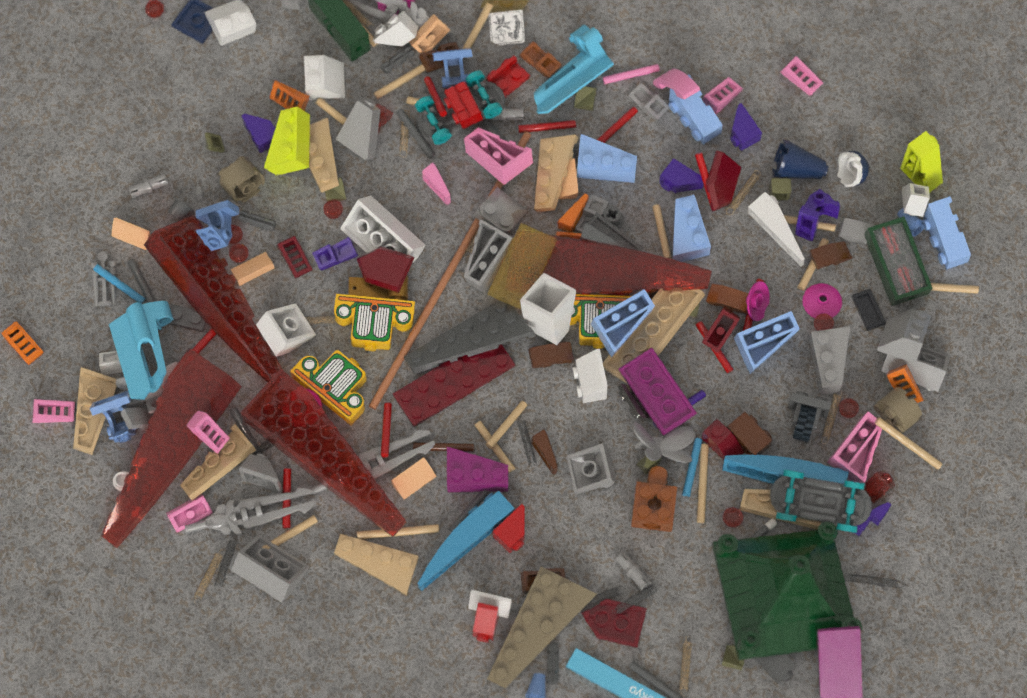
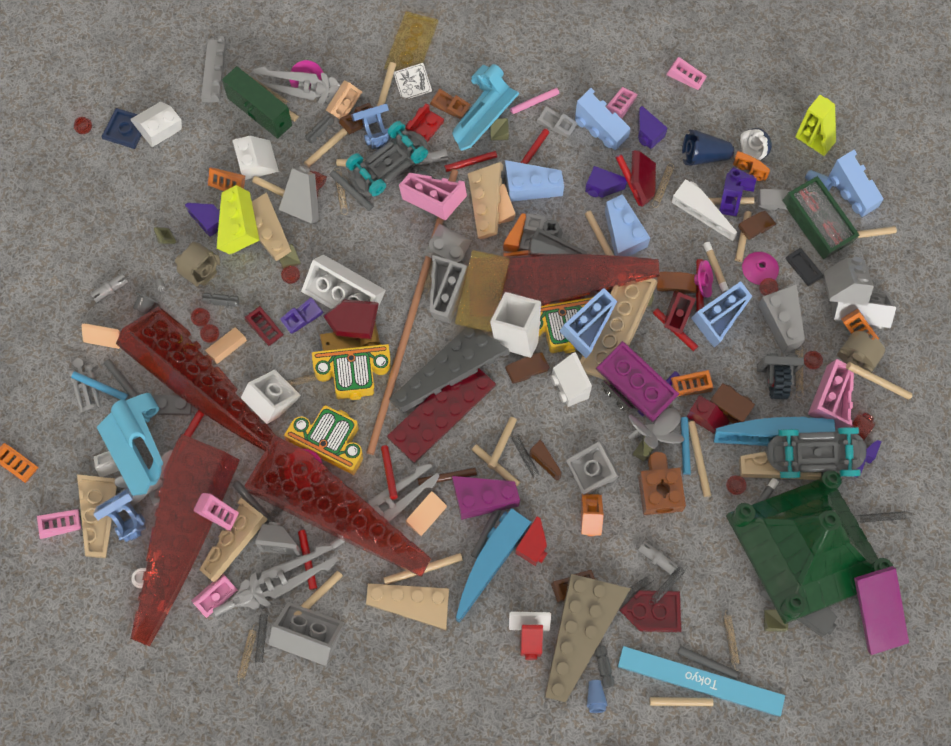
camera: 15 degrees left, 0 degrees up
(136, 418) = (142, 513): light grey slope -> none
(217, 216) = (180, 321): medium blue tile -> none
(396, 31) = (313, 103): white slope -> none
(434, 180) = (381, 231): bright pink slope -> none
(435, 96) = (372, 164): red bar -> none
(463, 104) = (391, 155): red brick -> none
(577, 515) = (591, 514): none -> orange slope
(679, 82) = (587, 95): bright pink slope -> none
(715, 399) = (705, 375): none -> orange slope
(775, 289) = (715, 266): none -> tan bar
(780, 188) = (696, 174): olive slope -> none
(846, 195) = (755, 166): none -> orange slope
(915, 199) = (820, 159): white slope -> none

